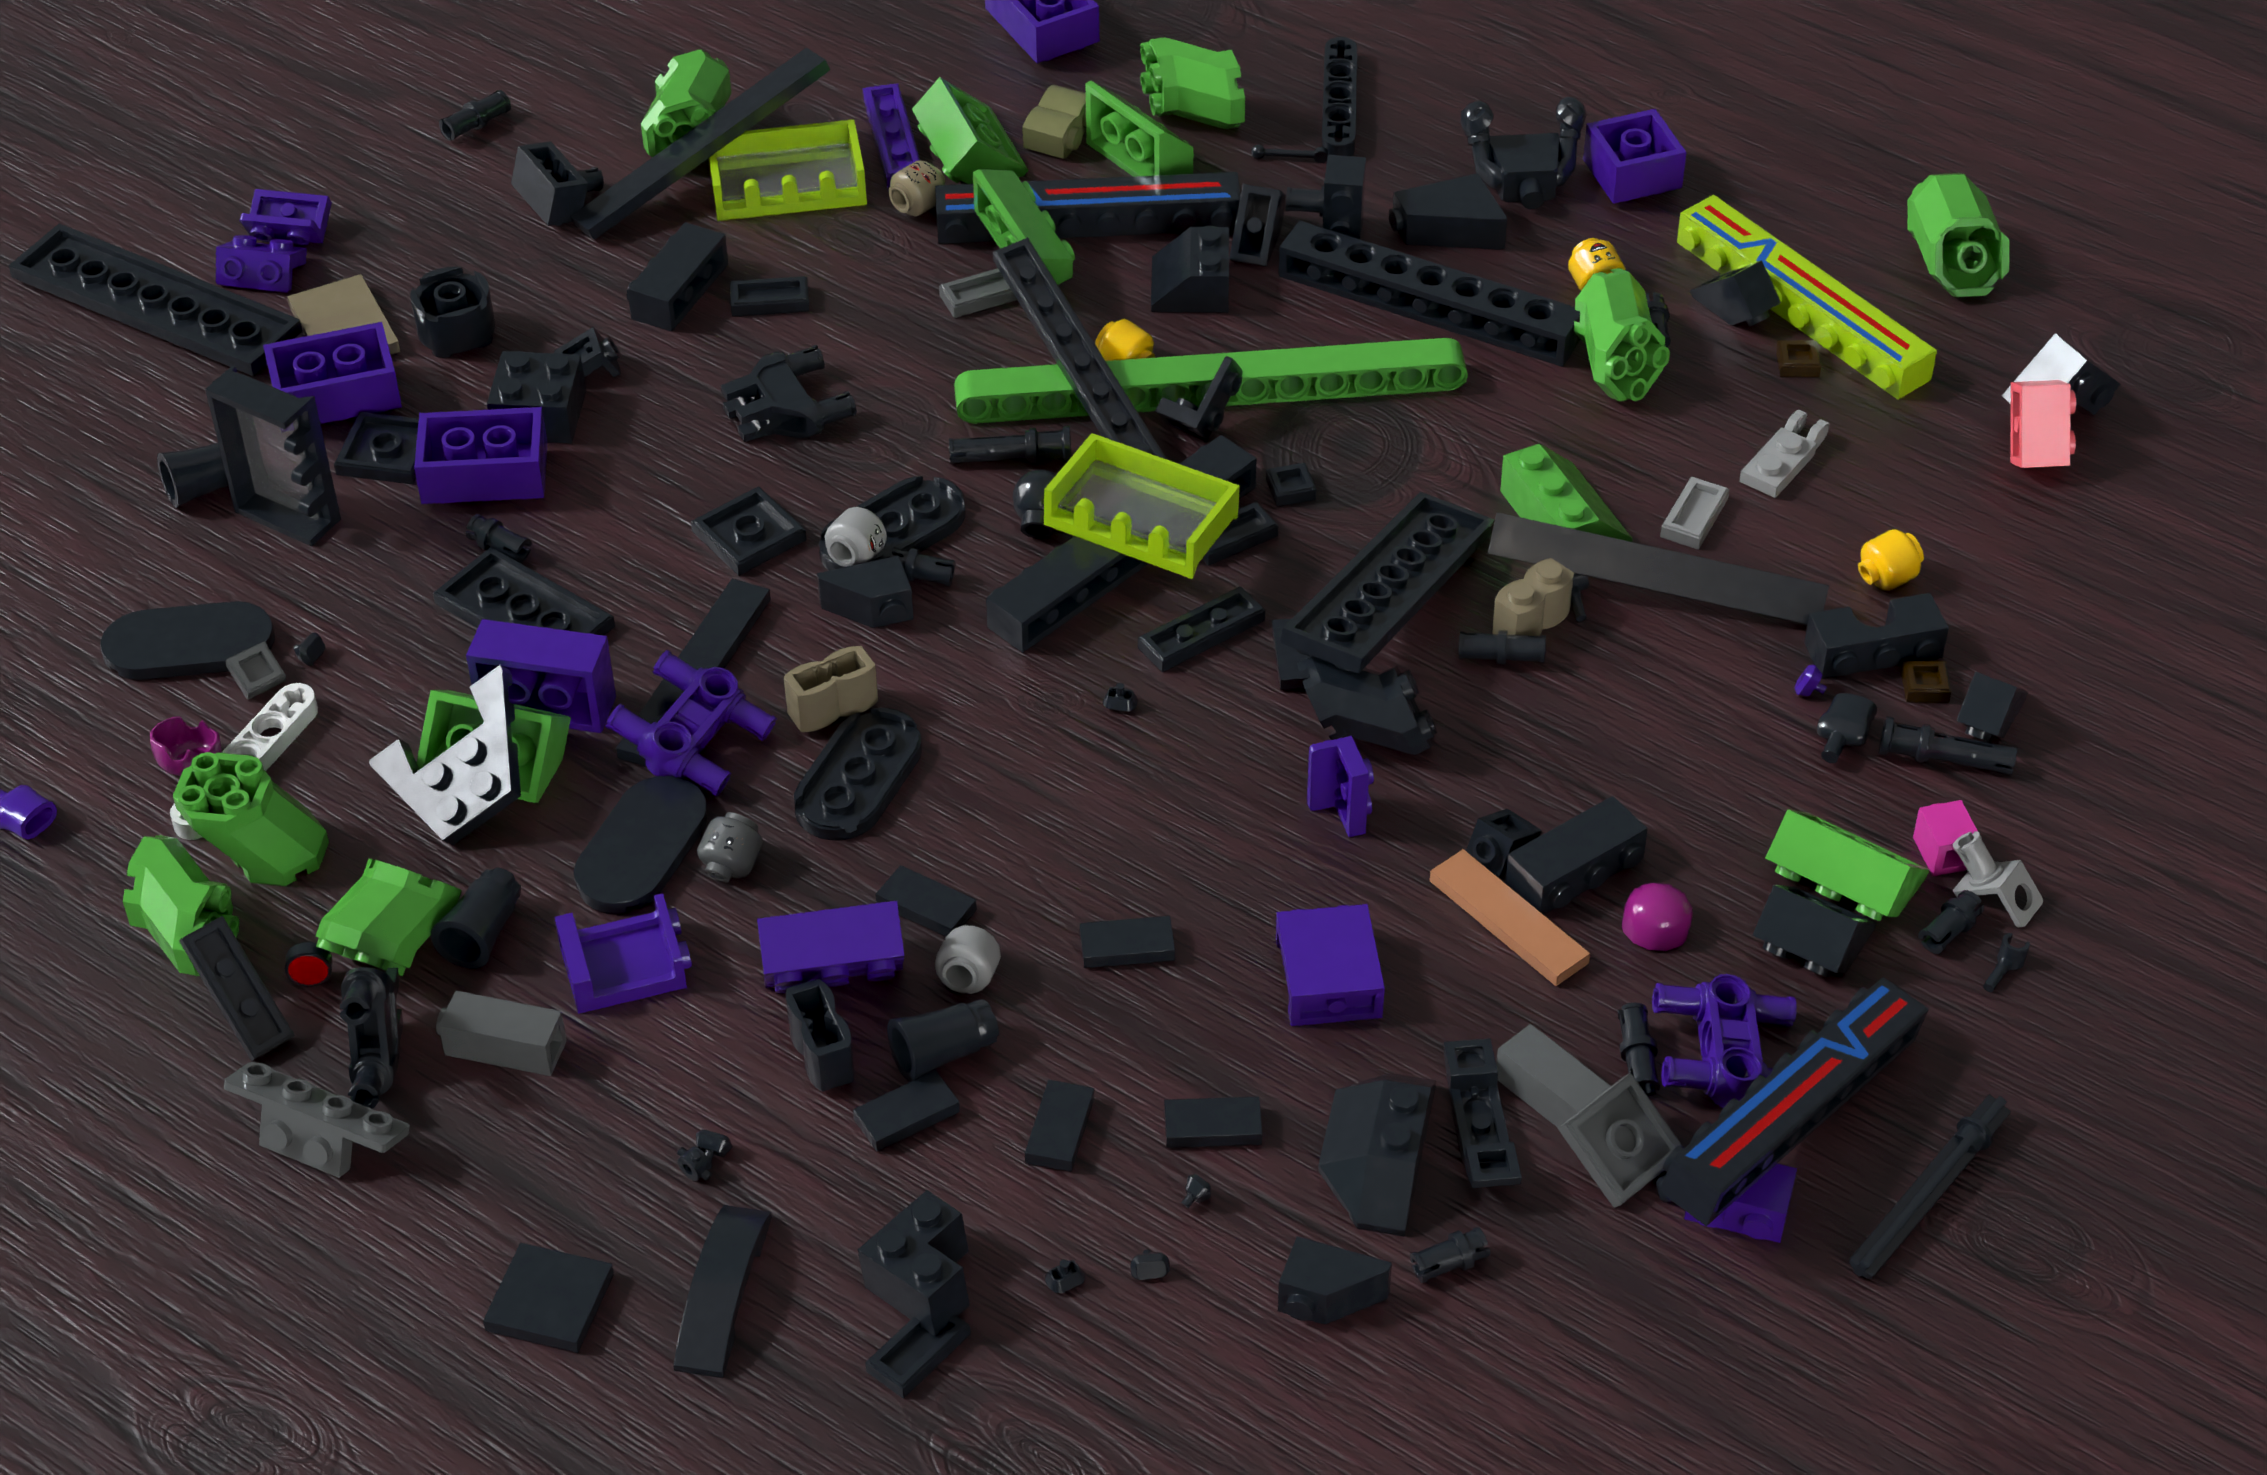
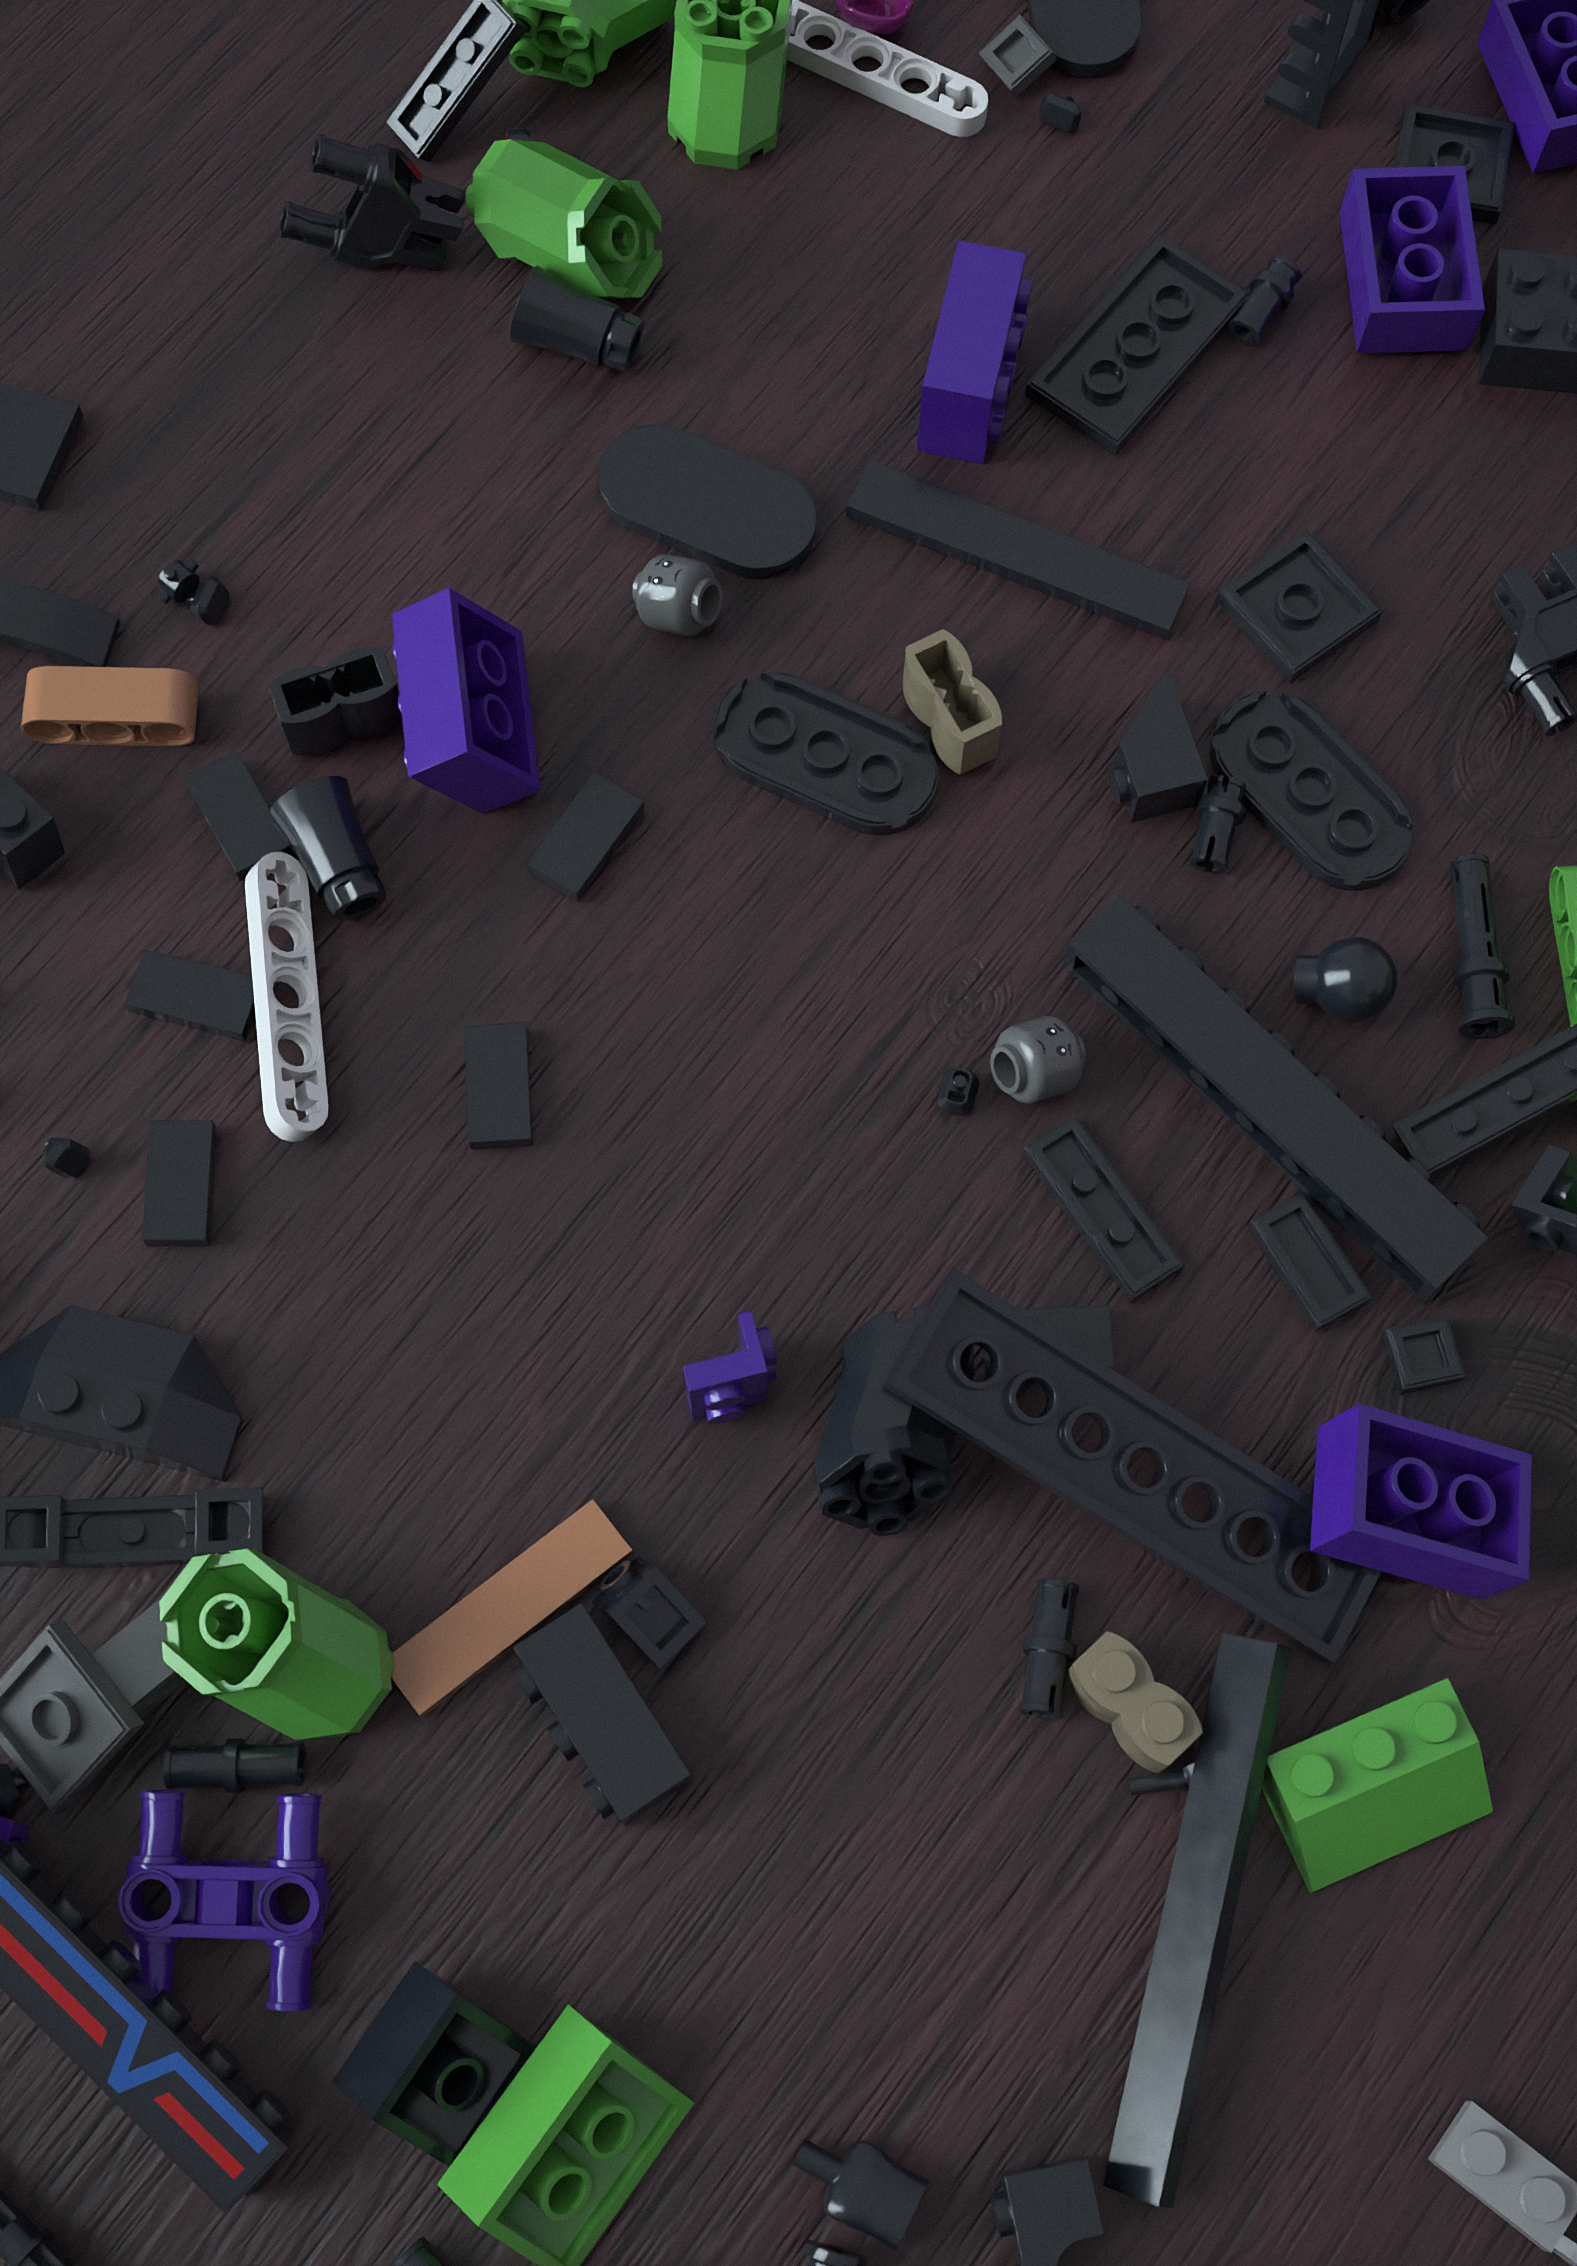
camera: 90 degrees right, 25 degrees up
(312, 1122) = (269, 174): dark grey bracket -> none
(469, 778) = (801, 277): wing -> none
(502, 1033) = (389, 362): dark grey brick -> none
(537, 733) = (876, 317): bright green slope -> none
(624, 957) = (509, 481): dark purple panel -> none
(677, 739) = (892, 535): dark purple piece -> none
(811, 1192) = (110, 706): none -> nougat beam
(855, 537) = (1243, 723): light grey head -> none
(967, 959) = (464, 880): light grey head -> none
(1061, 1061) = (273, 1018): none -> white beam
(1101, 649) = (1038, 1059): none -> dark grey head
(1140, 504) = (1299, 1102): lime window -> none
(1330, 964) = (422, 1340): dark purple panel -> none
(1396, 463) = (1421, 1502): none -> dark purple brick
(1561, 999) = (275, 1645): none -> bright green brick
(1657, 917) = (490, 1828): magenta hair -> none
(1694, 513) = (1378, 2008): light grey tile -> none
(1809, 682) = (970, 2145): dark purple rock -> none

